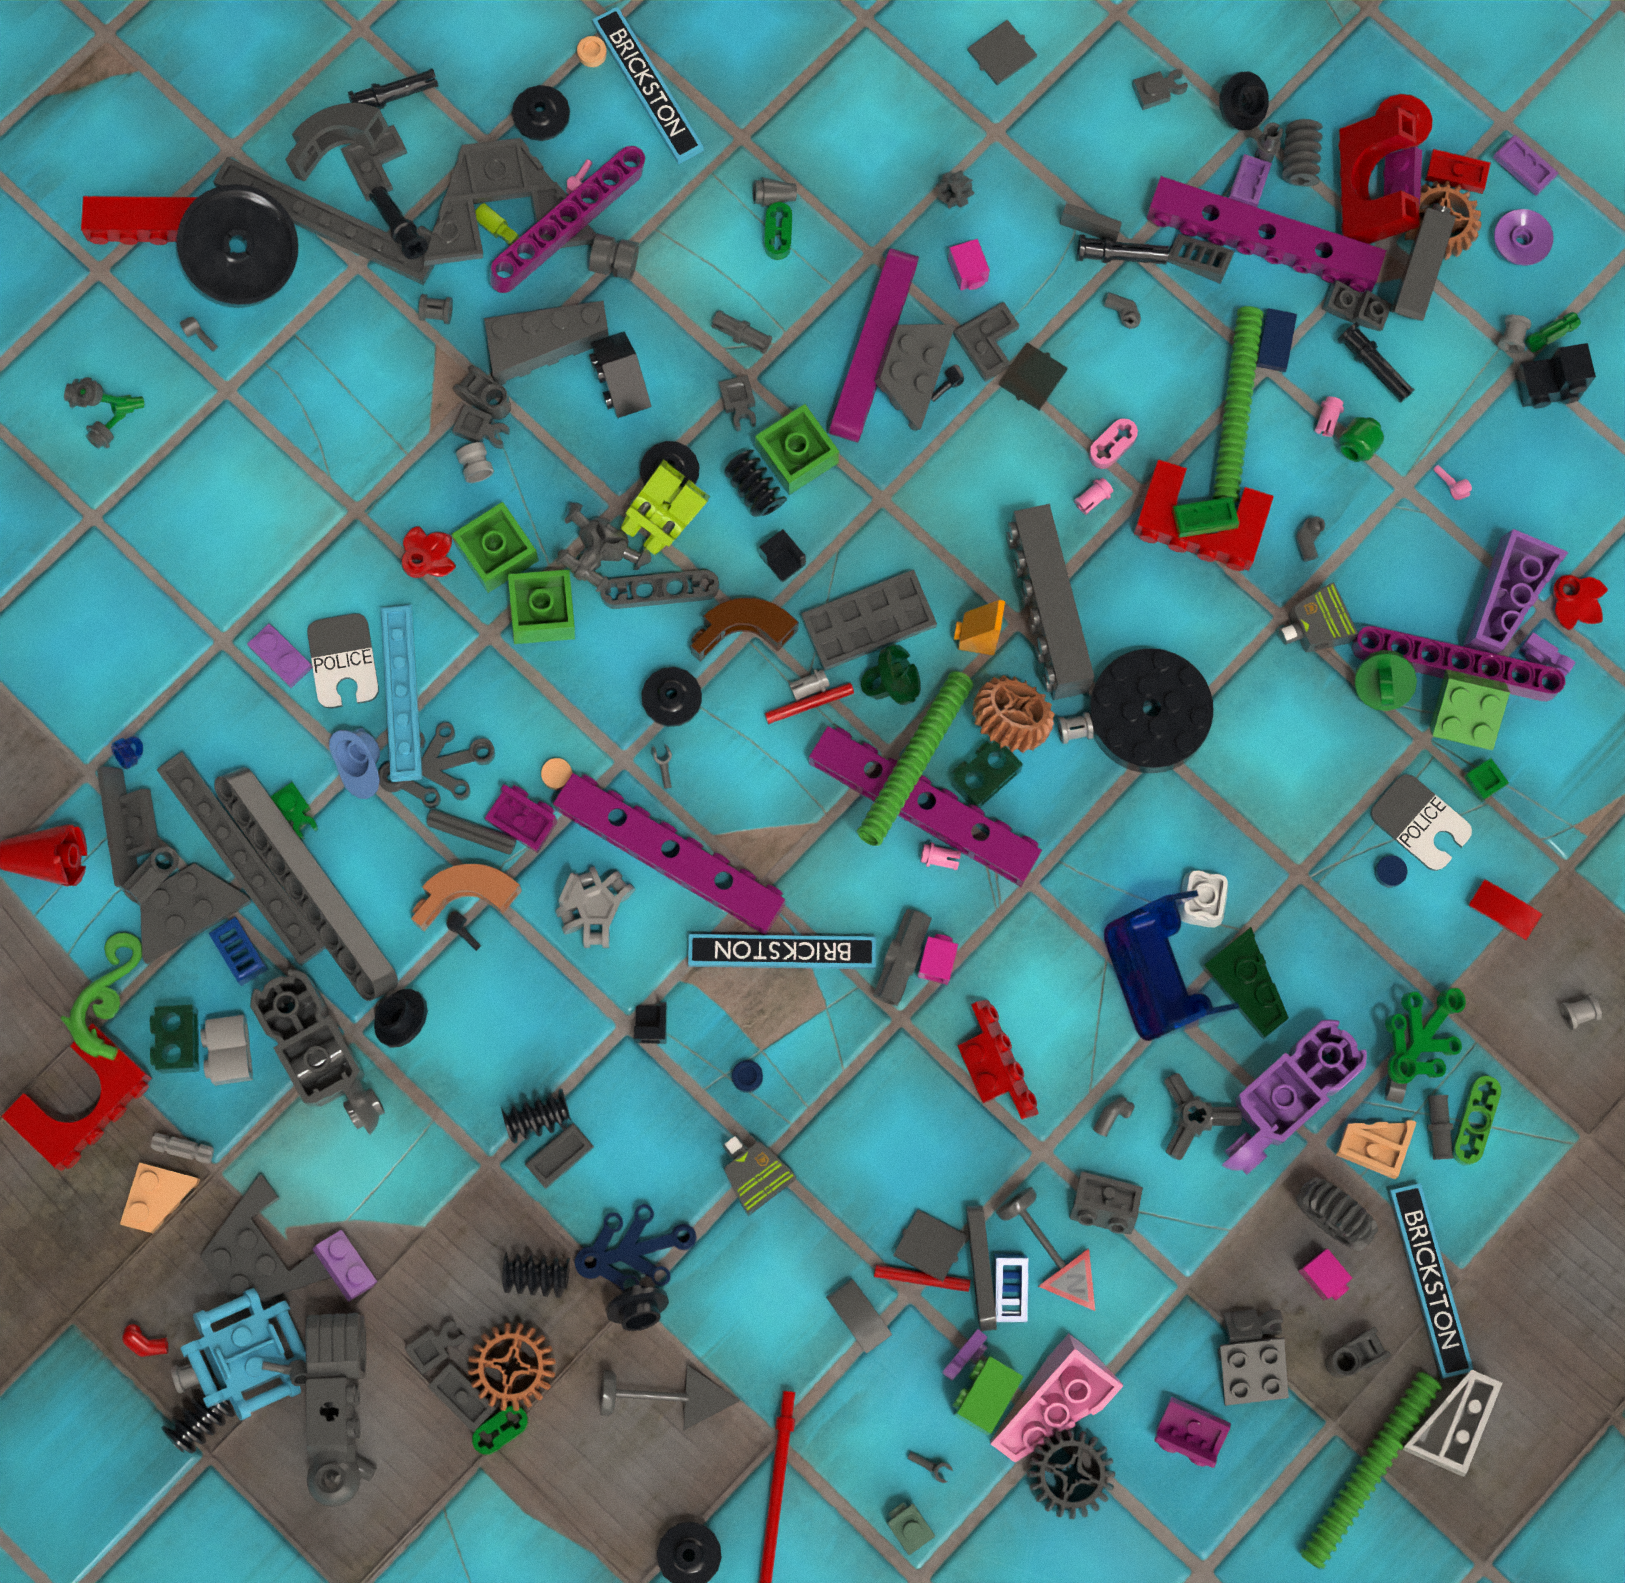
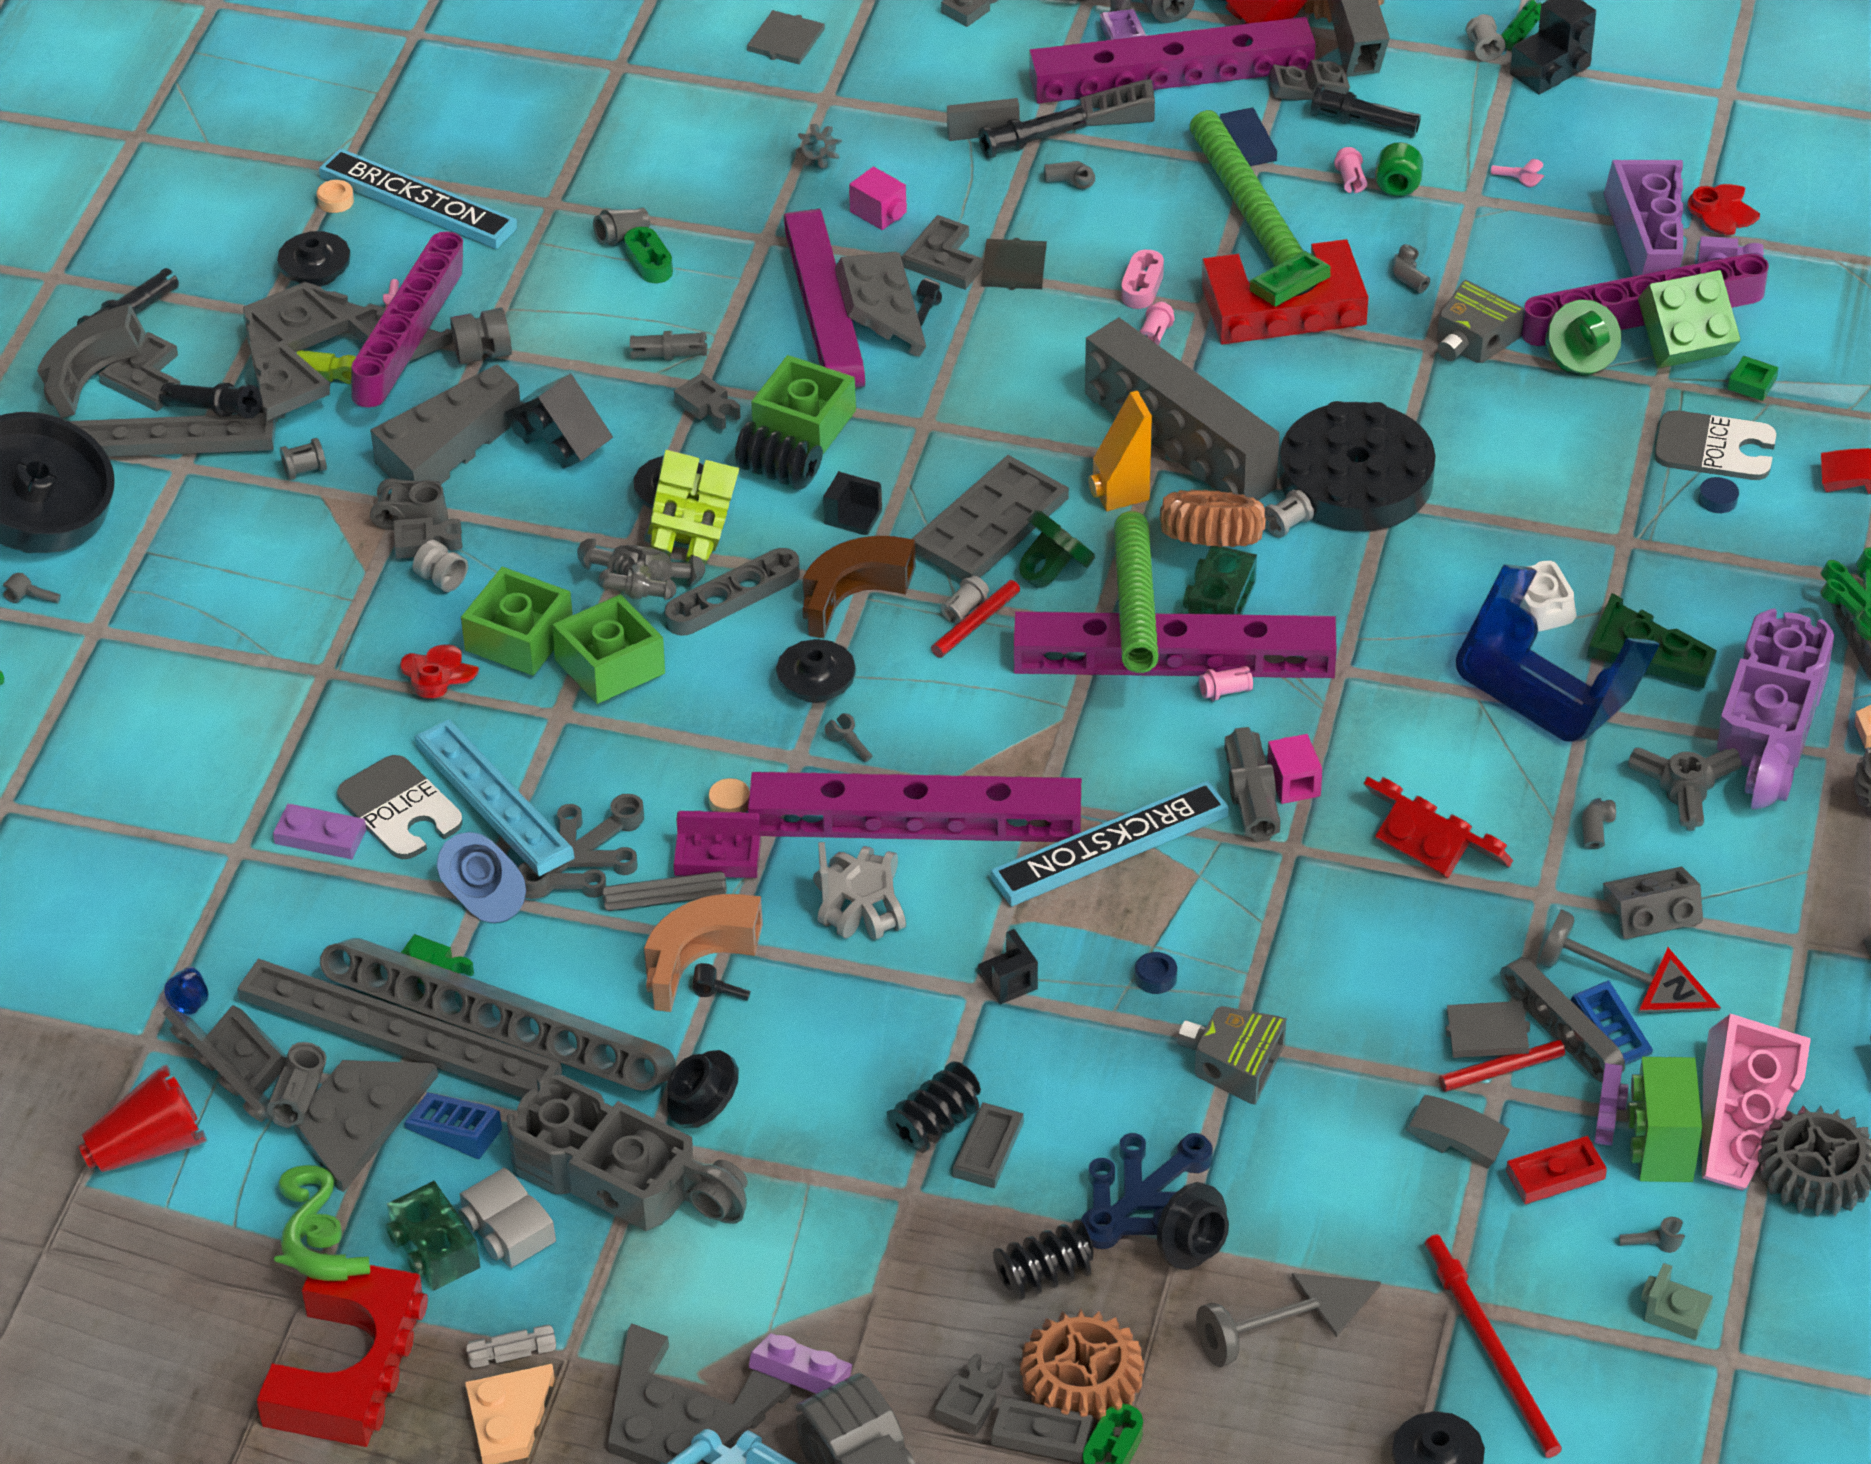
camera: 25 degrees left, 30 degrees down
(900, 1383) = (1556, 1169): none -> red plate

